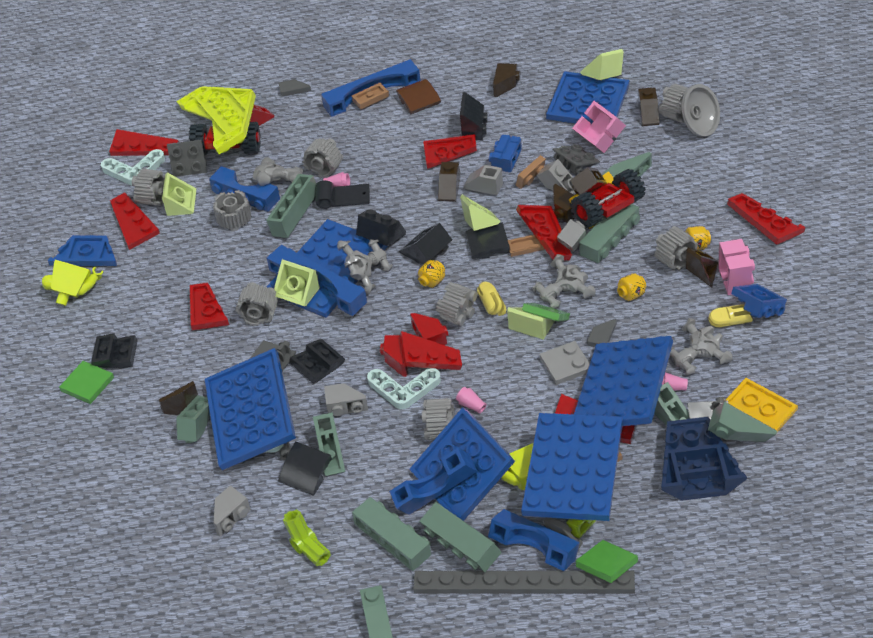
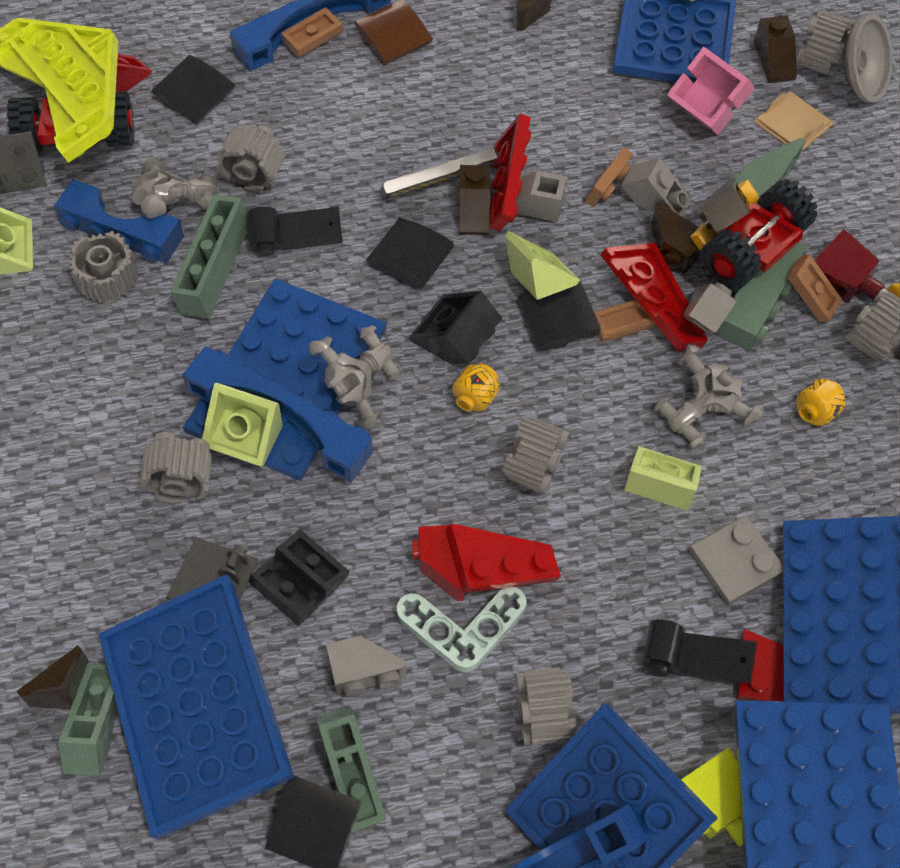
camera: 15 degrees left, 15 degrees up
(204, 308) = (78, 474): red wing -> none
(293, 87) = (176, 16): dark grey tile -> none
(297, 124) = (193, 88): none -> black slope
(339, 179) = (283, 200): bright pink cone -> none
(379, 227) = (371, 300): black slope -> none
(407, 208) = (410, 252): none -> black slope
(426, 169) = (434, 174): none -> tile
(429, 328) = (491, 505): red slope -> none
(448, 149) = (460, 133): red wing -> none
(468, 171) = (509, 165): none -> red wing
(469, 399) = (588, 651): bright pink cone -> none
(473, 117) = (495, 77): black slope -> none
(491, 299) = (587, 435): light yellow arm -> none
(506, 152) = (560, 141): blue brick -> none
(518, 402) = (696, 655): none -> black door
(545, 312) = (691, 463): bright green tile -> none
(574, 157) = (675, 147): dark grey hinge -> none
(602, 333) = (787, 498): dark grey tile -> none
(639, 229) = (814, 288): none -> medium nougat plate
(652, 143) = (793, 119): none -> tan piece
(660, 219) = (850, 267): none -> dark red torso

